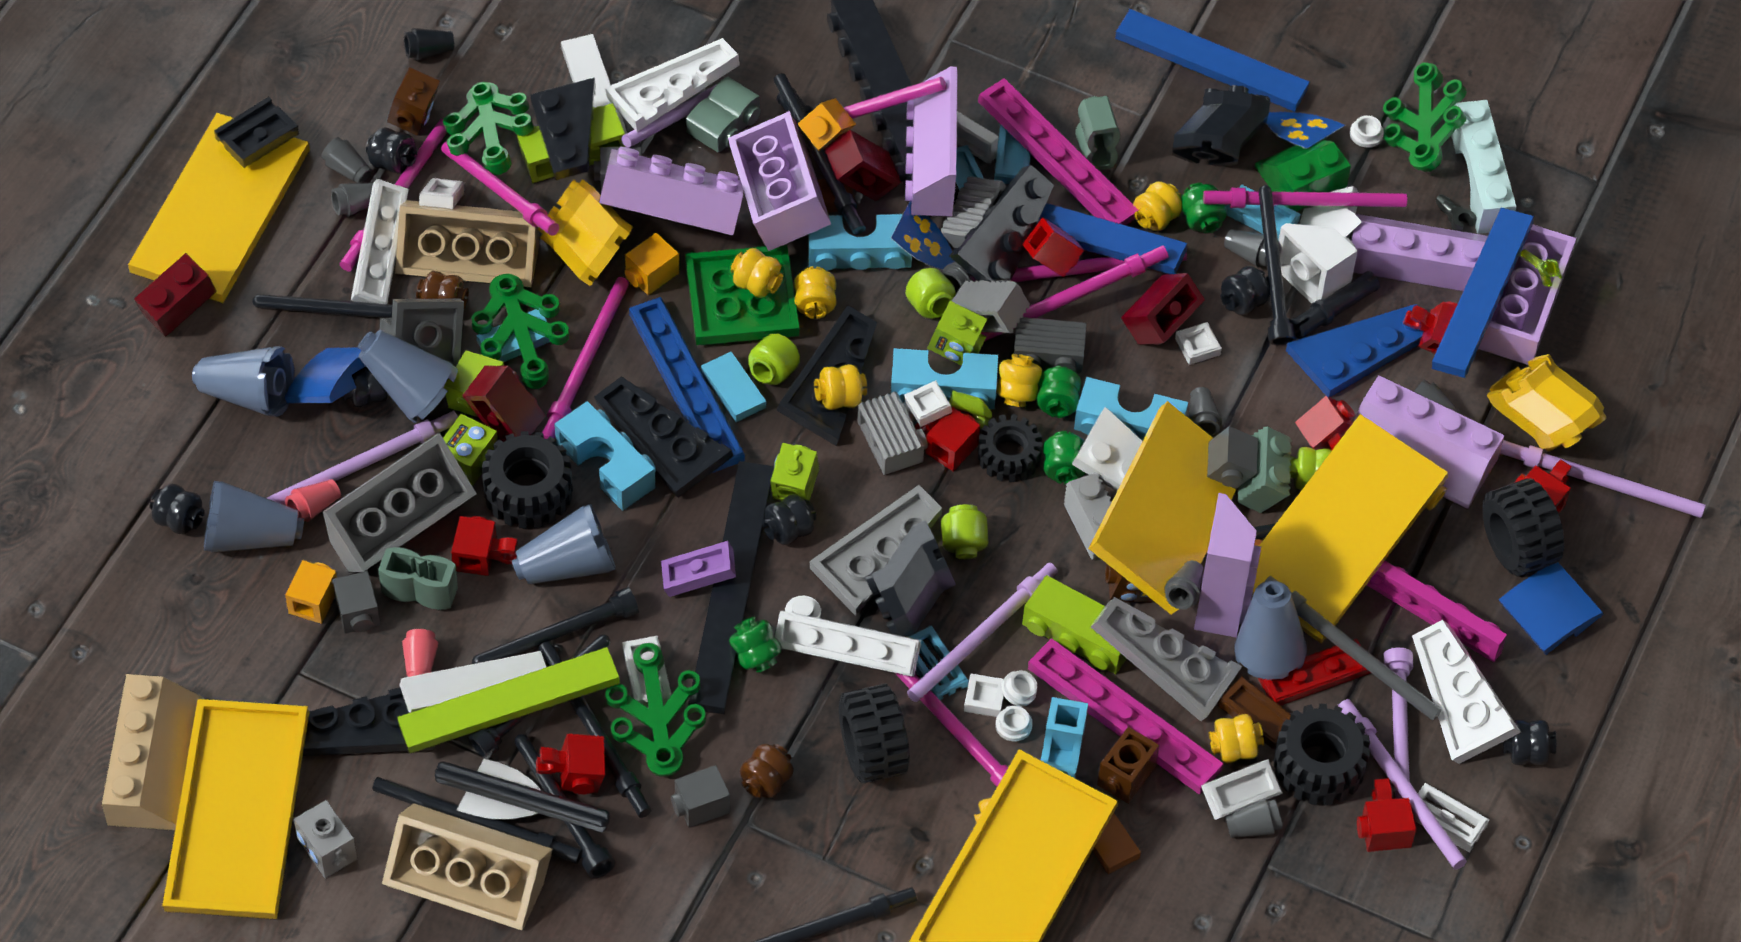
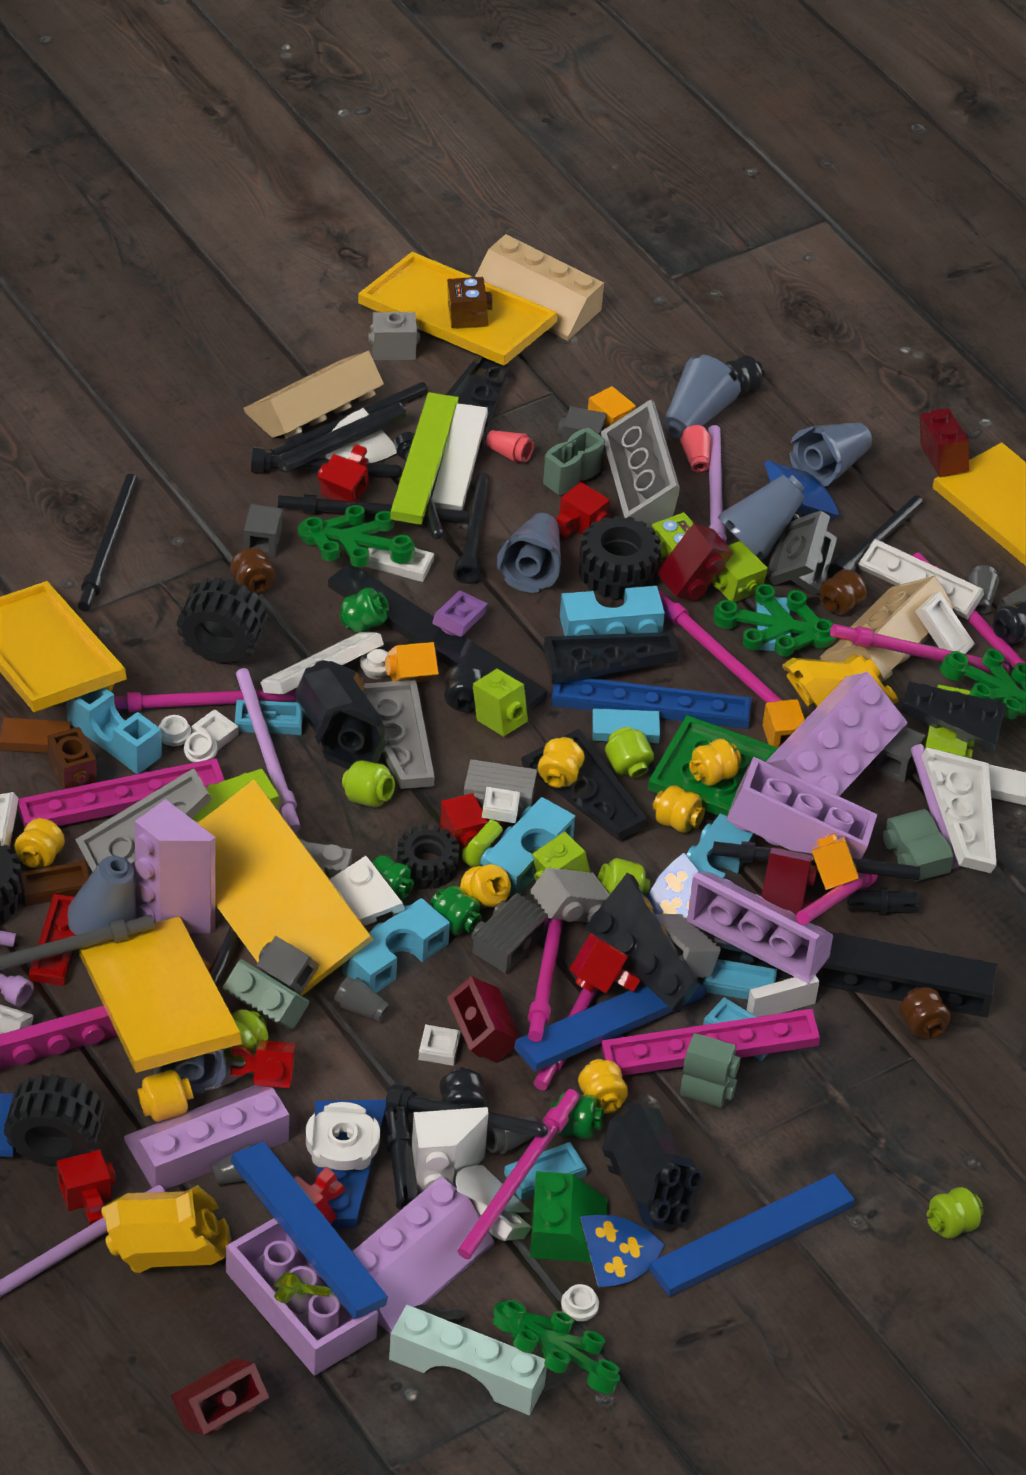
camera: 120 degrees right, 10 degrees down
(243, 780) = (468, 302): none -> reddish brown head
(795, 569) = (412, 662): none -> light orange brick
(912, 34) = (925, 1013): none -> reddish brown piece
(1358, 352) = (342, 1154): none -> white plate
(1650, 294) = (220, 1397): none -> dark red brick

